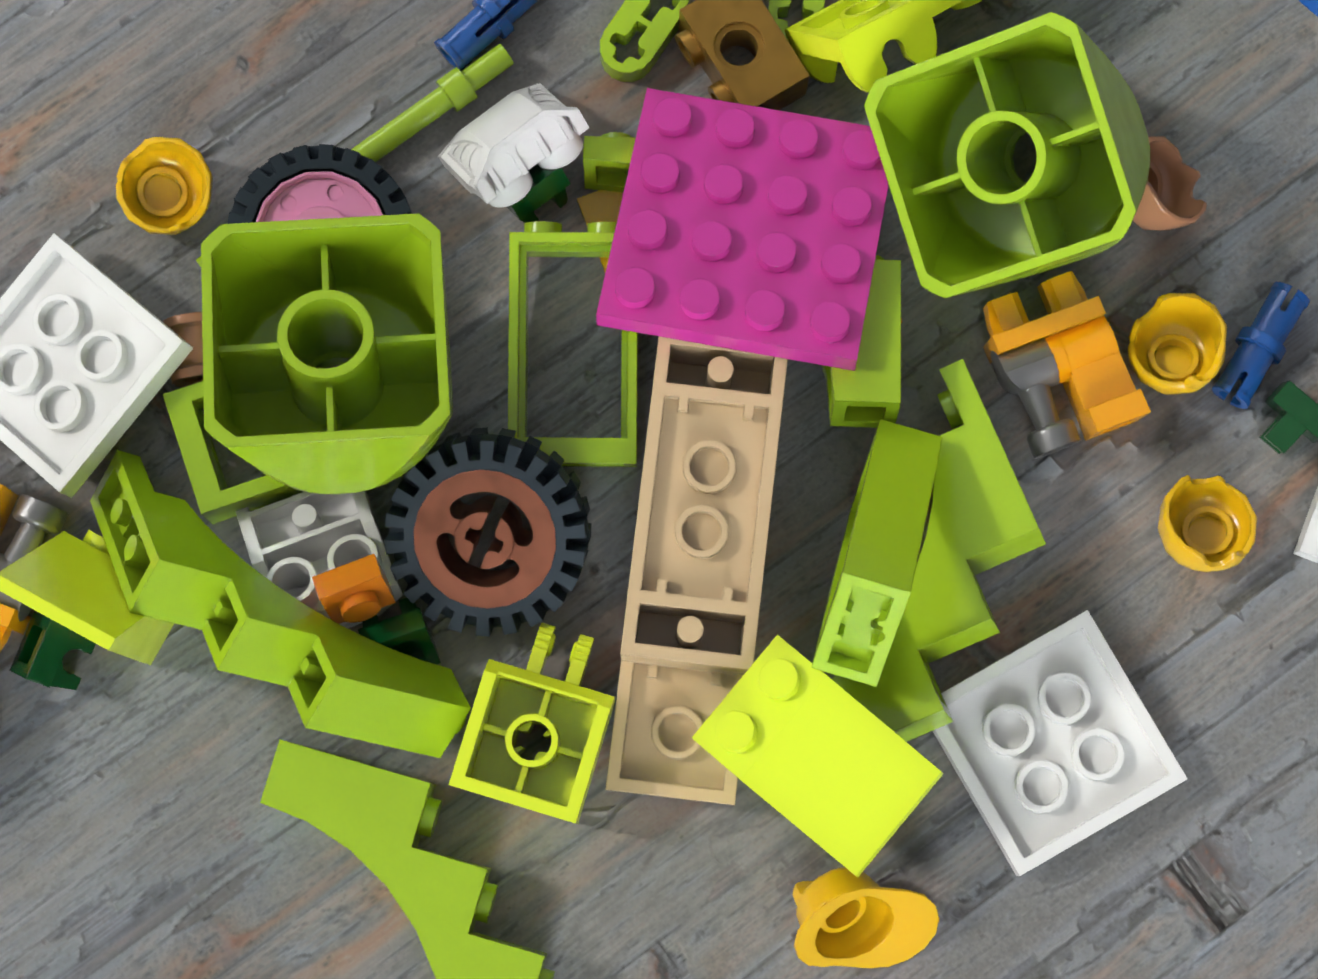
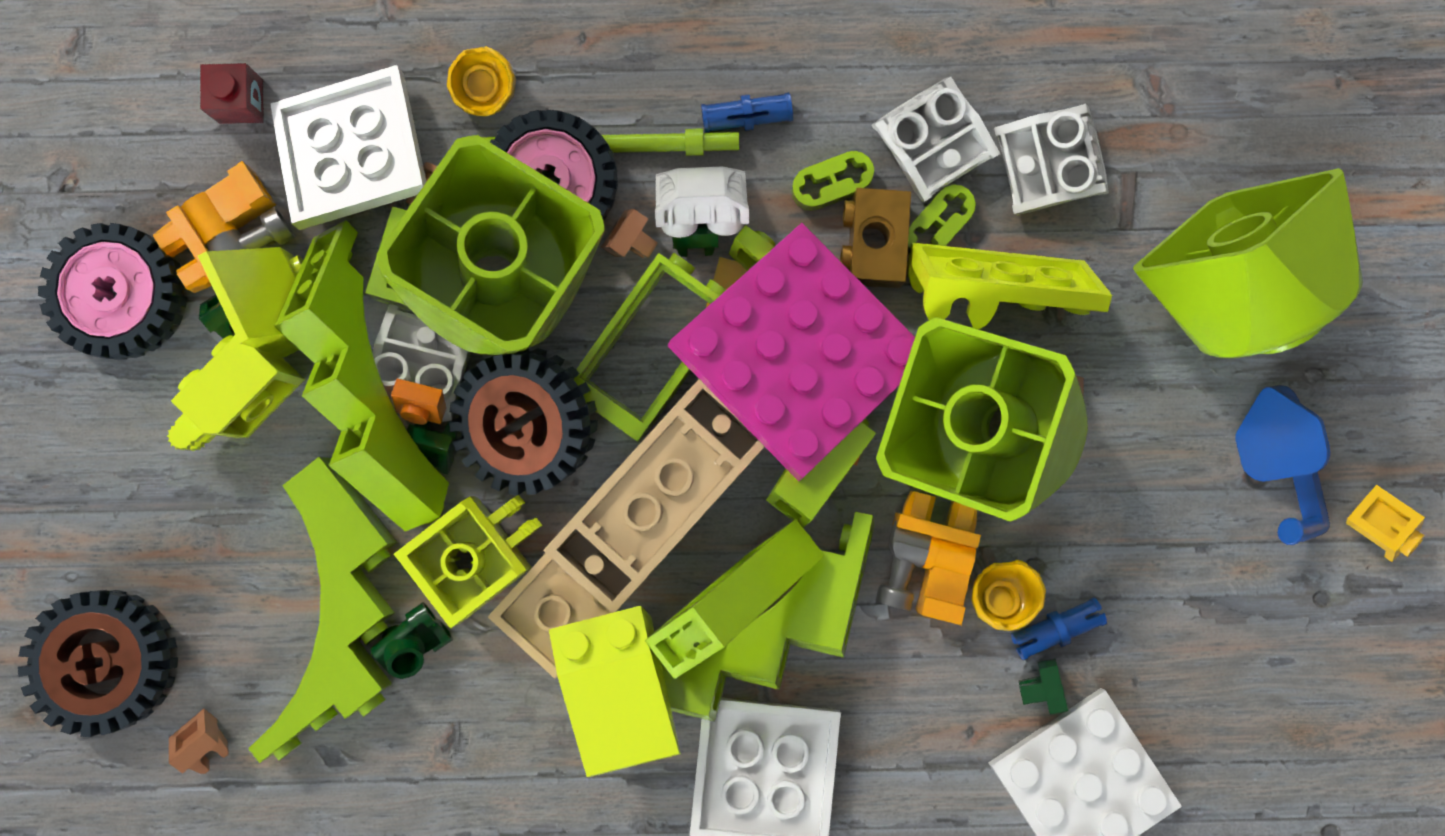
camera: 30 degrees right, 5 degrees up
(124, 738) = (230, 394): none -> neon yellow hinge
(463, 241) = (628, 235): none -> nougat tile
(534, 891) = (405, 644): none -> dark green plate
(859, 922) = (577, 798): yellow piece -> none
(1169, 190) = (1072, 499): nougat hair -> none
(1206, 524) = (947, 712): yellow hair -> none

